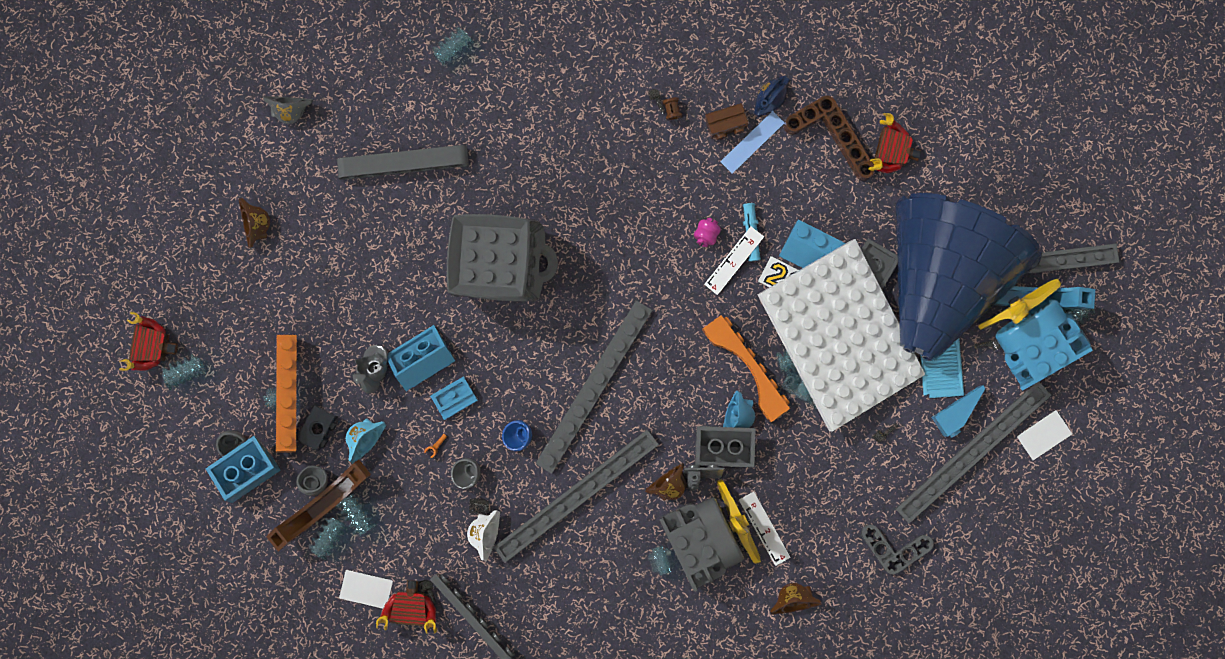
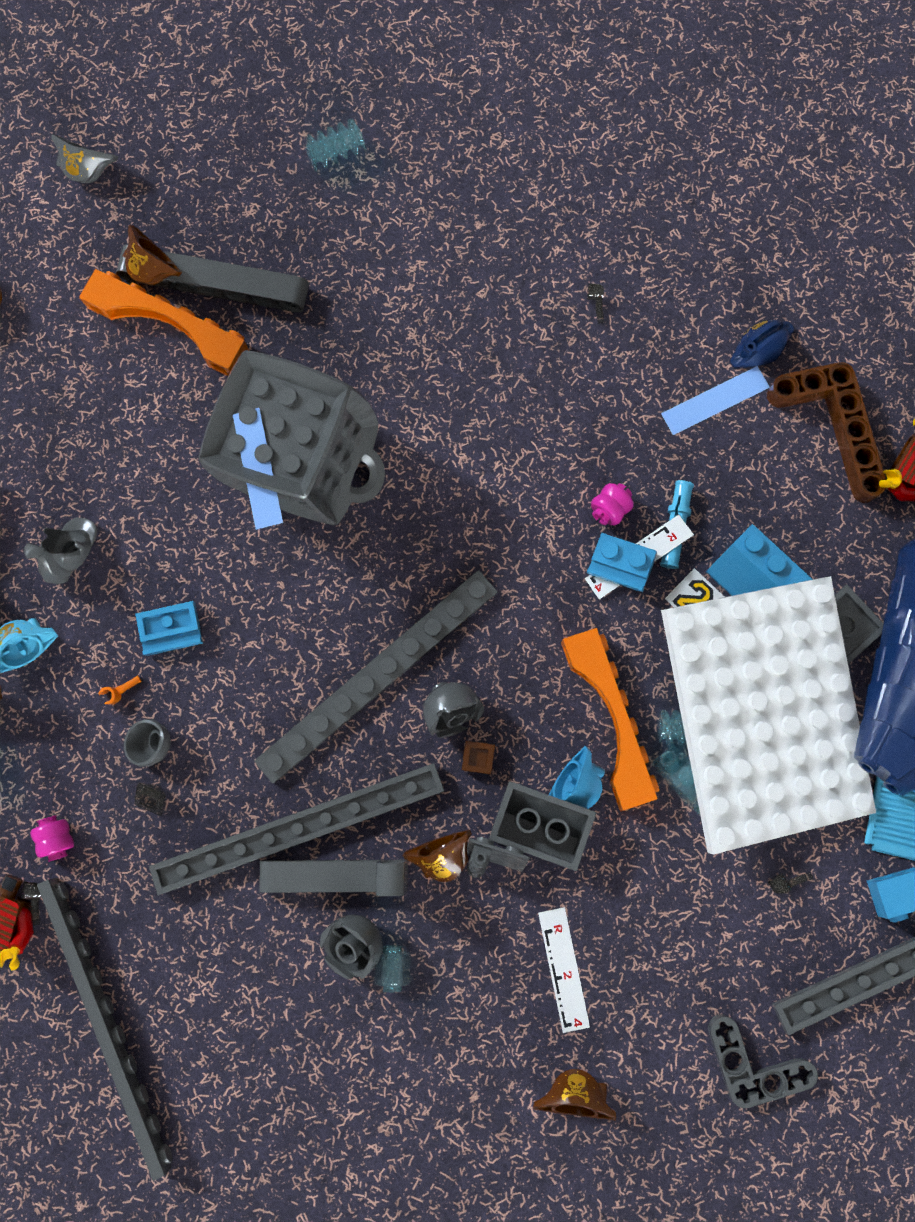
camera: 20 degrees right, 5 degrees down
(344, 195) = (115, 300): none -> orange arch
(359, 166) = (145, 260): none -> reddish brown hat
(420, 358) = (139, 556): dark azure slope -> none
(427, 549) = (52, 838): none -> dark pink piece
(483, 533) = (142, 842): white hat -> none
(496, 305) = (263, 501): none -> light blue sticker
(517, 435) = (240, 711): blue piece -> none
(609, 516) = (295, 876): none -> dark grey beam
(633, 554) = (352, 946): none -> dark grey cylinder
(646, 392) = (450, 707): none -> dark grey cylinder
(669, 104) = (615, 309): reddish brown bush -> none
(673, 417) = (478, 757): none -> reddish brown plate
(706, 539) = (468, 958): dark grey brick -> none
(724, 267) = (622, 562): none -> dark azure plate
(726, 121) = (687, 358): reddish brown brick -> none

